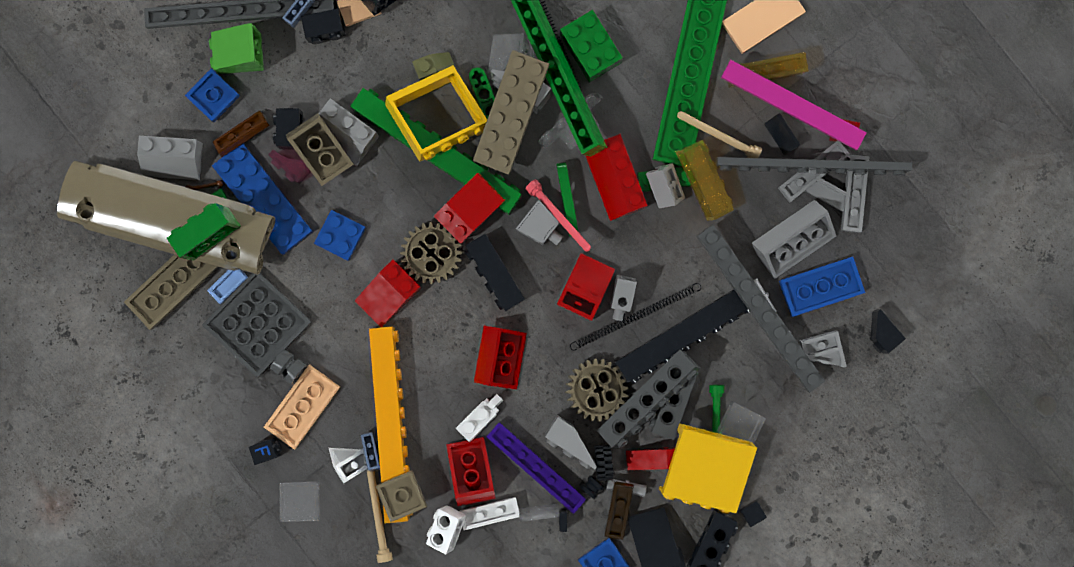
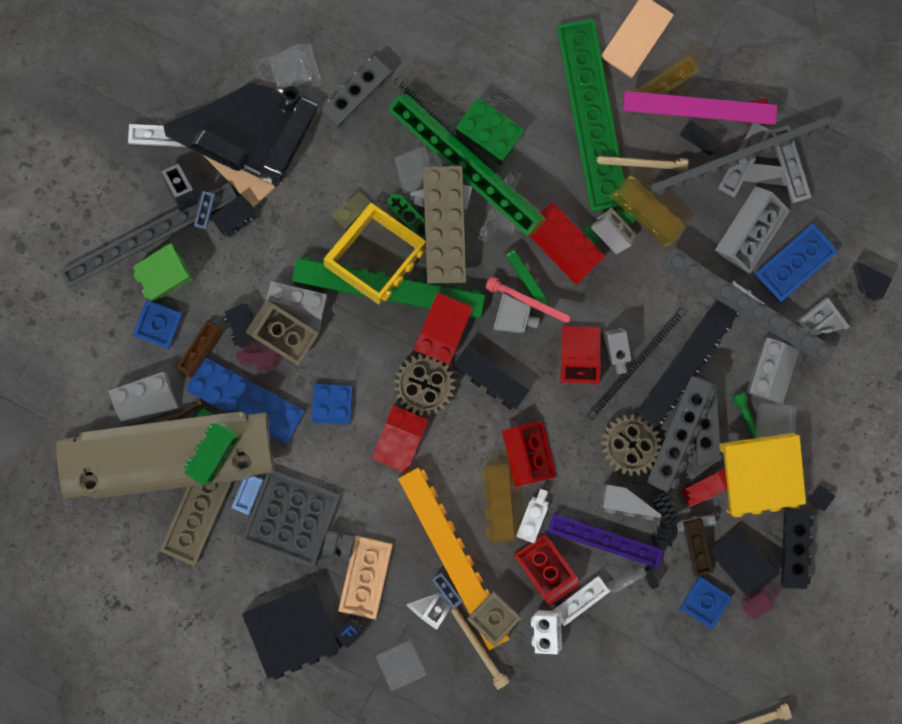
camera: 25 degrees left, 0 degrees up
(211, 428) = (291, 632): none -> black panel
(452, 392) = (499, 503): none -> clear yellow brick
(758, 377) = (772, 370): none -> light grey slope

